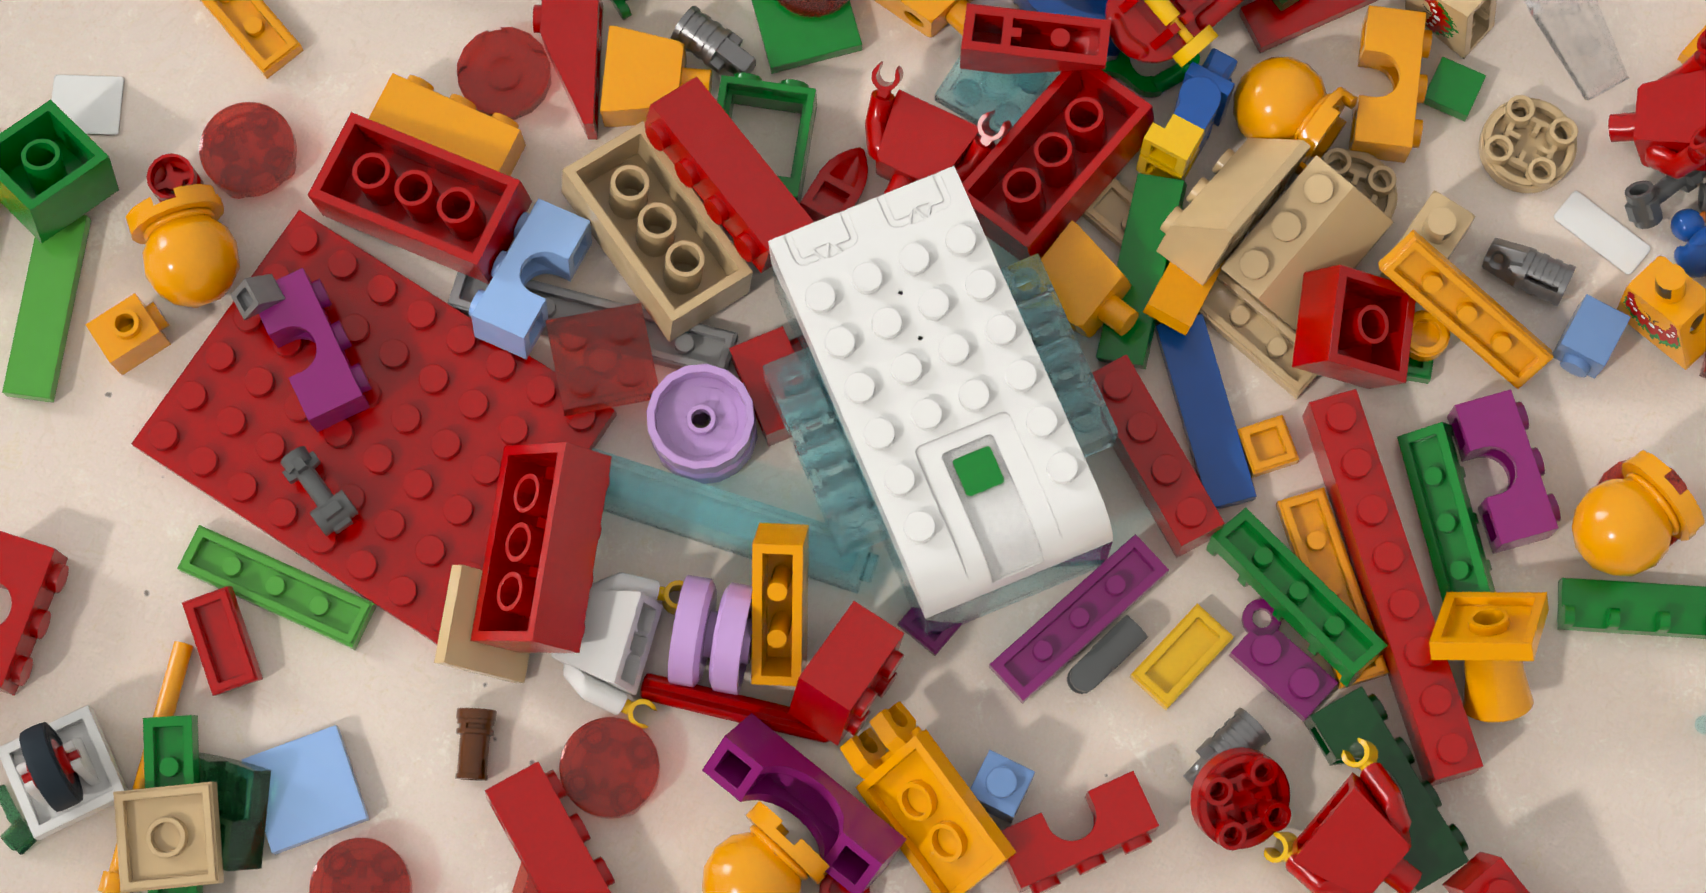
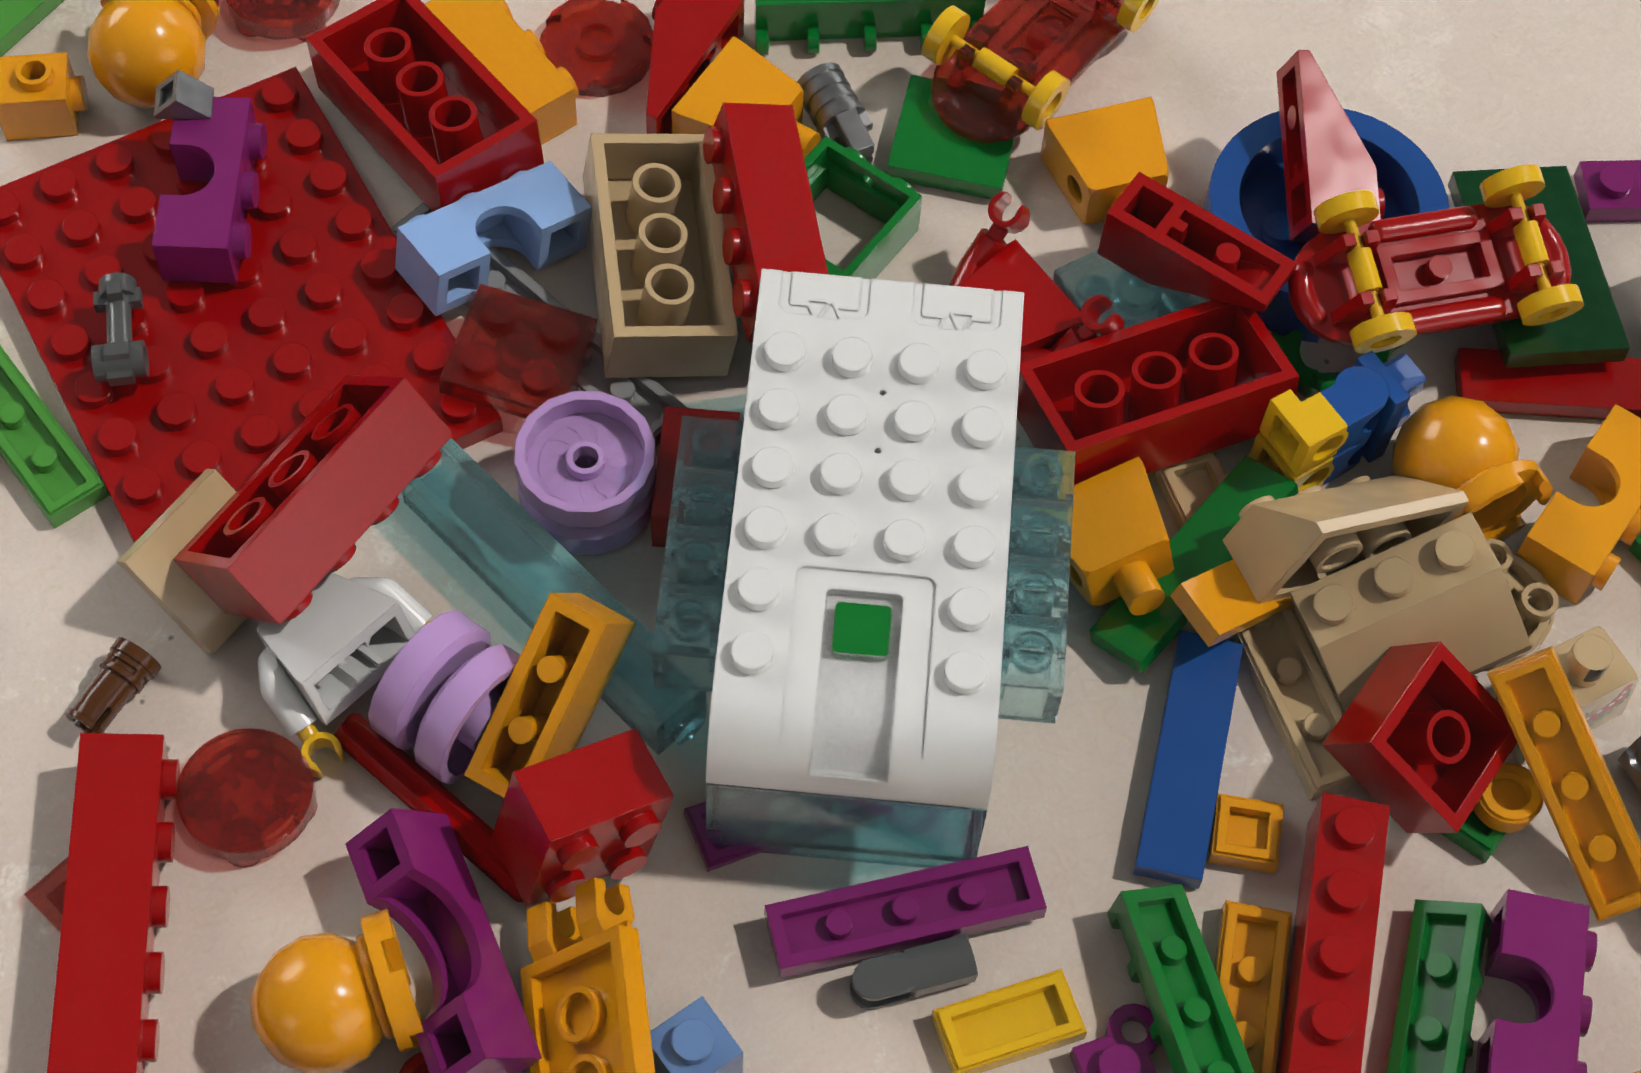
camera: 20 degrees right, 15 degrees down
(1156, 460) = (1097, 772): red brick -> none

